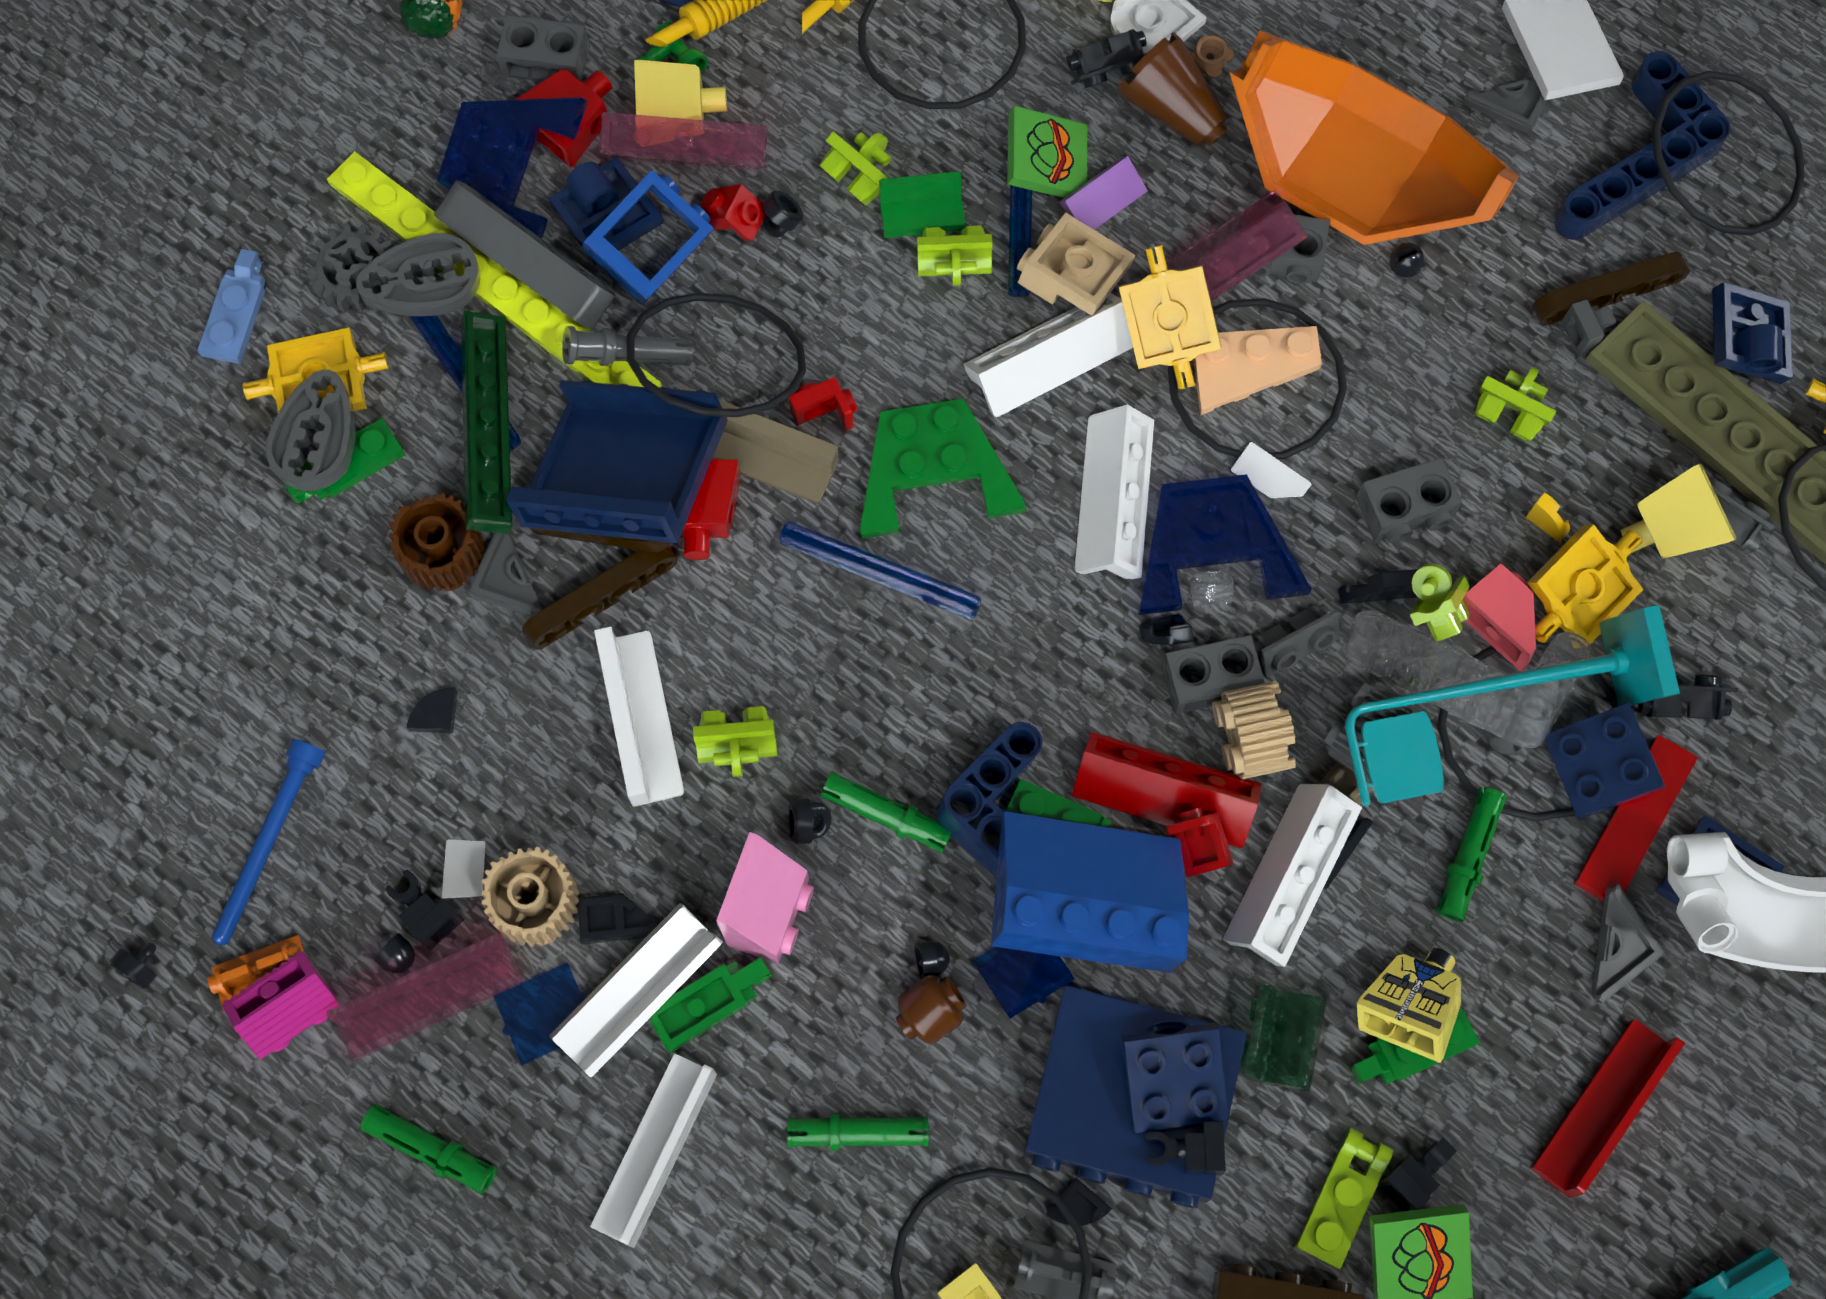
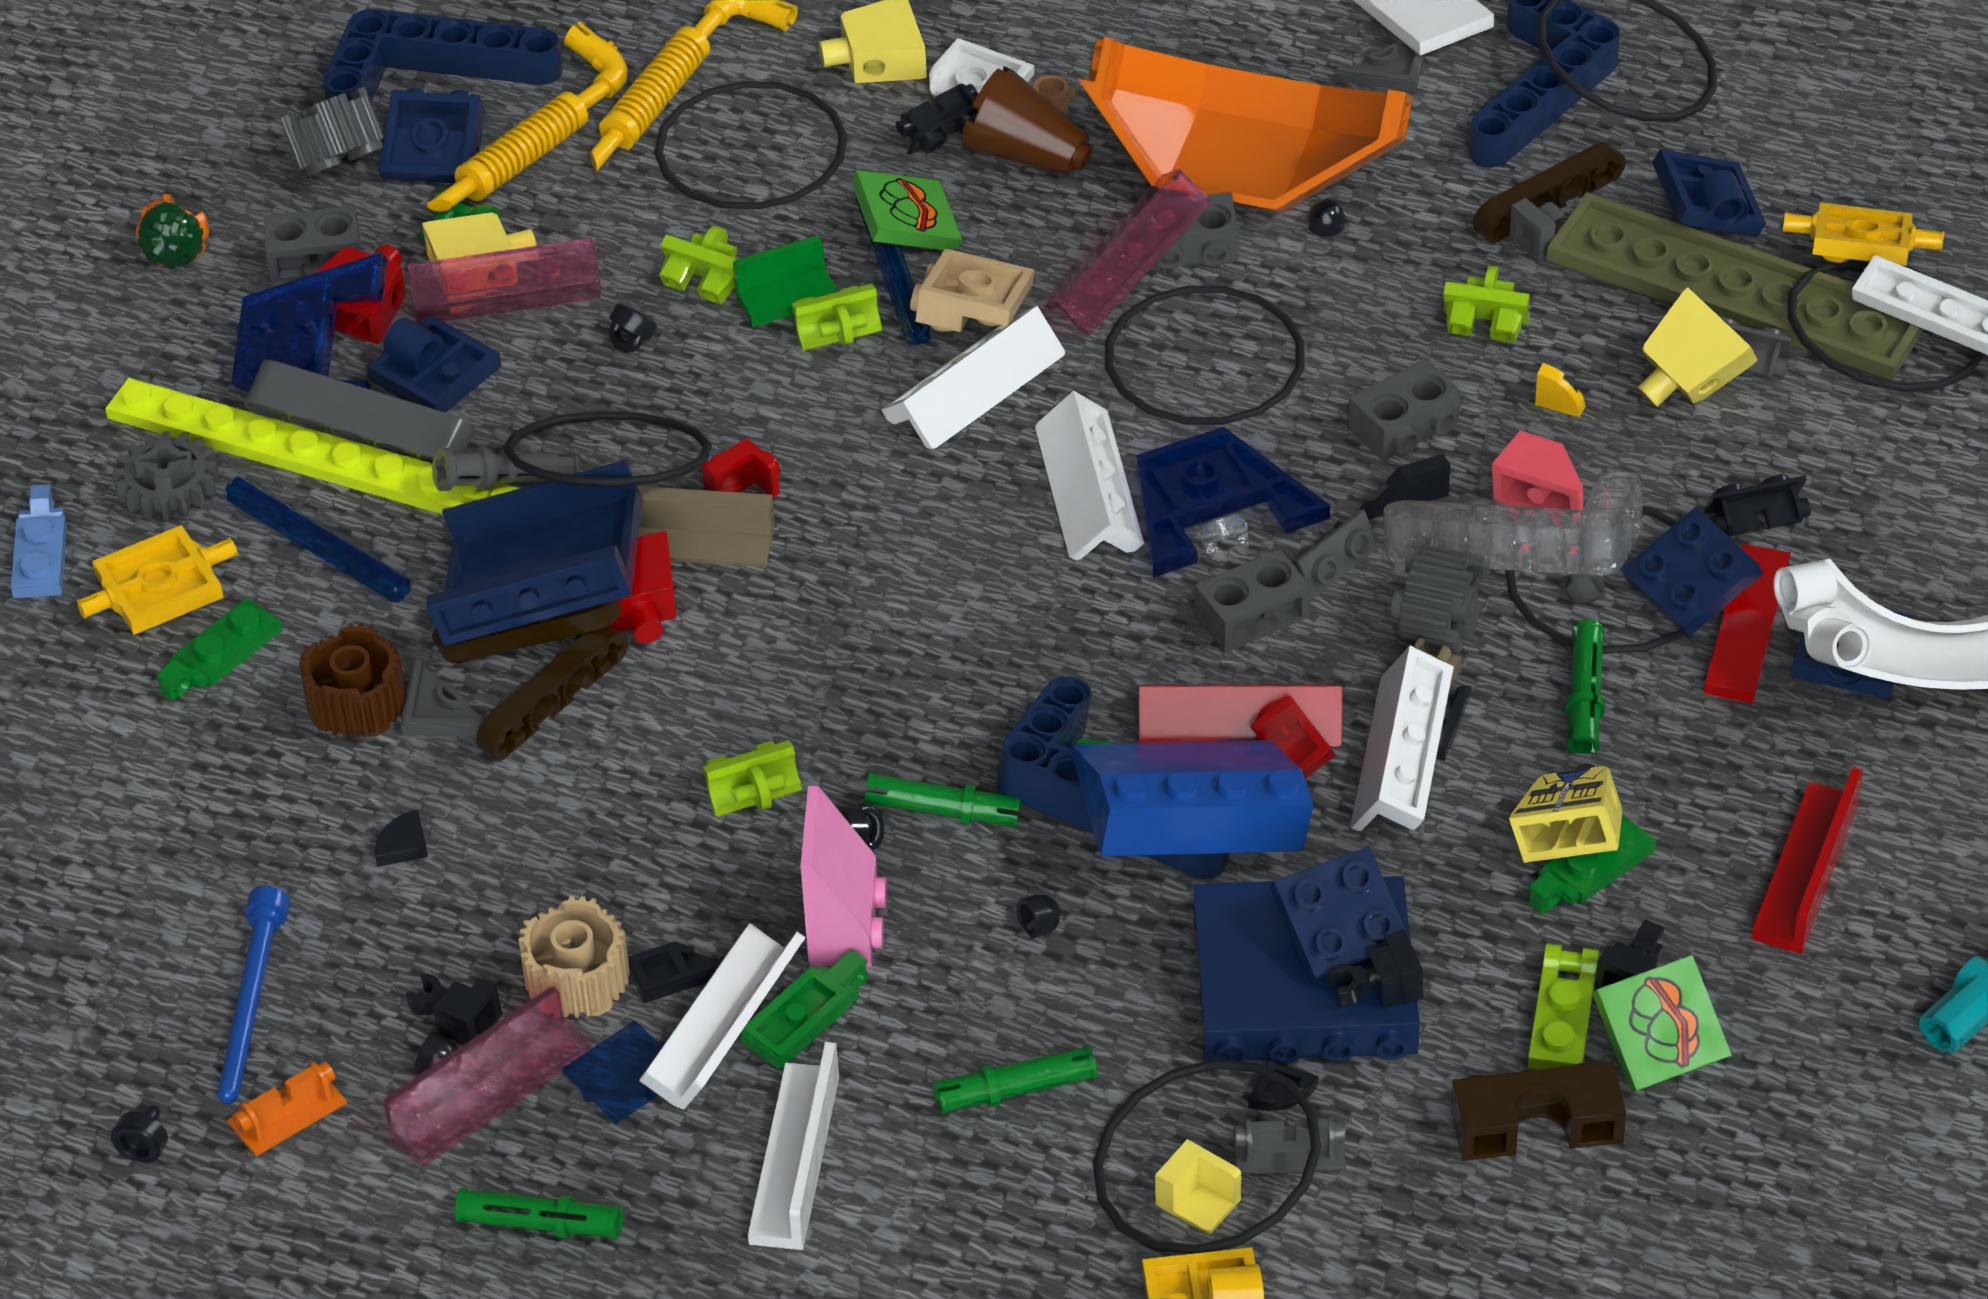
camera: 15 degrees left, 25 degrees down
(280, 1005) = (327, 1118): dark pink brick -> none
(334, 443) = (156, 609): dark grey piece -> none
(432, 297) = (235, 477): dark grey piece -> none
(463, 868) = (487, 959): white sticker -> none
(485, 423) = (371, 564): dark green tile -> none
(620, 267) = (491, 412): blue window -> none
(639, 716) = (633, 787): white panel -> none
(734, 209) = (575, 328): red bracket -> none
(880, 570) = (856, 603): clear blue axle -> none
(930, 1009) = (1055, 951): reddish brown head -> none
(931, 448) = (875, 488): green wing -> none
(1021, 977) = (1143, 893): clear blue piece -> none
(1105, 194) = (984, 228): medium lavender tile -> none
(1167, 630) = (1188, 577): black tile -> none
(1170, 317) = (1091, 306): yellow plate -> none
(1254, 362) = (1188, 340): light nougat wing -> none
(1255, 730) = (1315, 627): tan brick -> none
(1269, 474) = (1252, 429): white sticker -> none
(1283, 1038) = (1445, 885): clear green bracket -> none
(1404, 751) = (1479, 590): teal piece -> none
(1440, 602) = (1465, 468): lime hips -> none
(1585, 583) = (1617, 429): yellow plate -> none
(1623, 945) = (1773, 723): dark grey tile -> none

